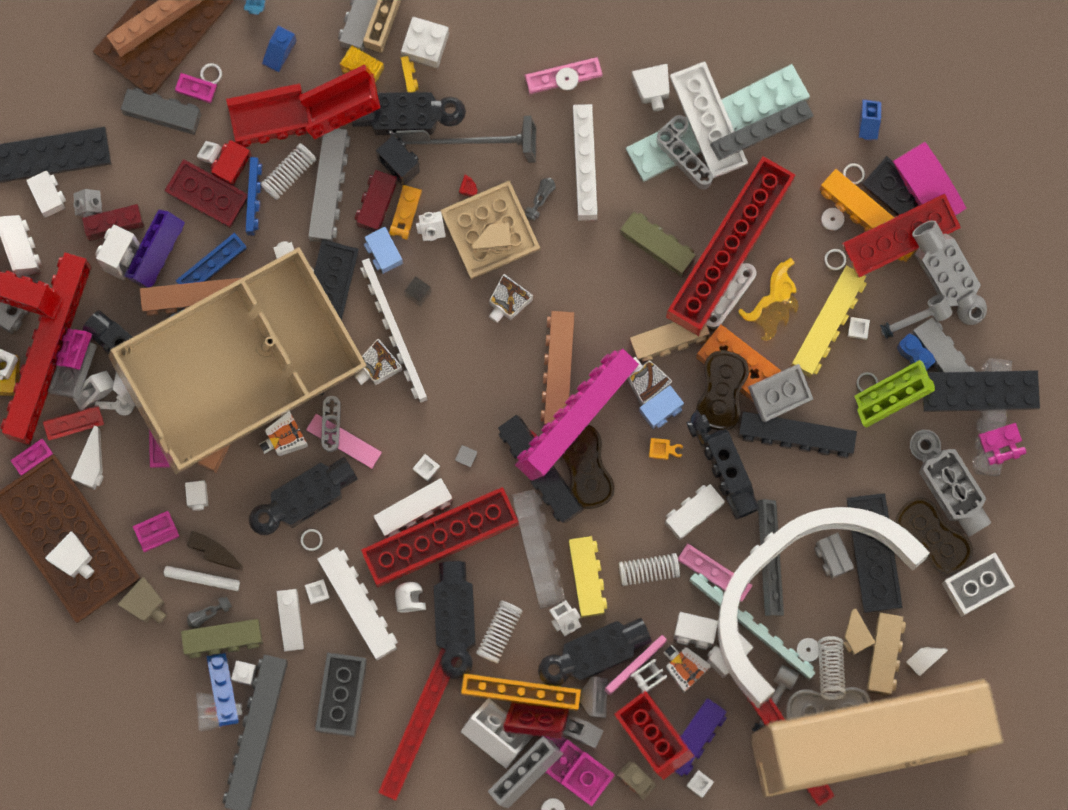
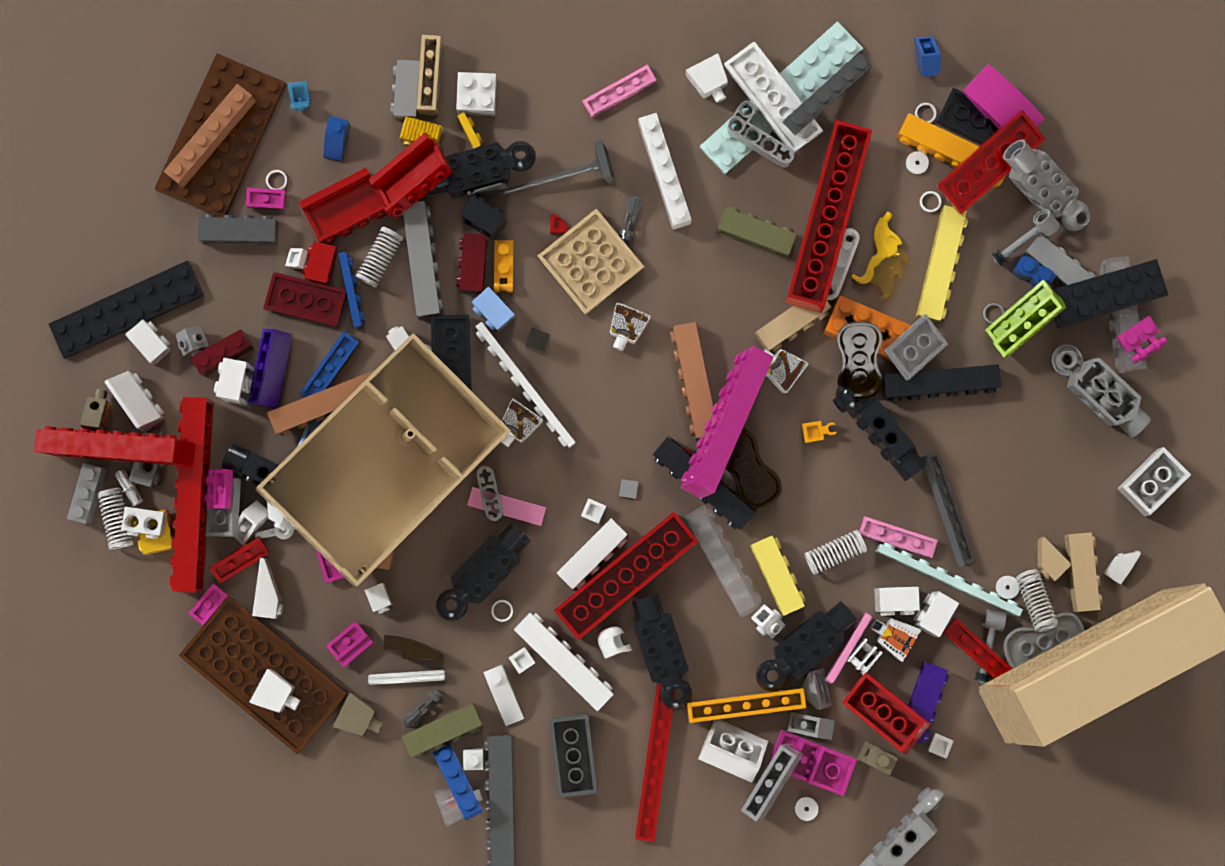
camera: 15 degrees left, 5 degrees up
(284, 436) = (447, 518): torso -> none
(431, 226) = (533, 273): white brick -> none
(494, 238) = (598, 269): tan slope -> none
(506, 607) = (710, 637): white piece -> none
(536, 720) = (768, 729): dark red plate -> none
(571, 83) = (628, 98): white wheel -> none
(661, 407) = (804, 390): light blue brick -> none
(694, 511) = (863, 483): white brick -> none
(834, 556) = (1008, 491): light grey brick -> none
(846, 518) = (1038, 451): white arch -> none
(858, 328) = (971, 263): white plate -> none
(875, 561) = (1045, 477): black plate -> none
(947, 548) = (1111, 452): dark brown plate -> none

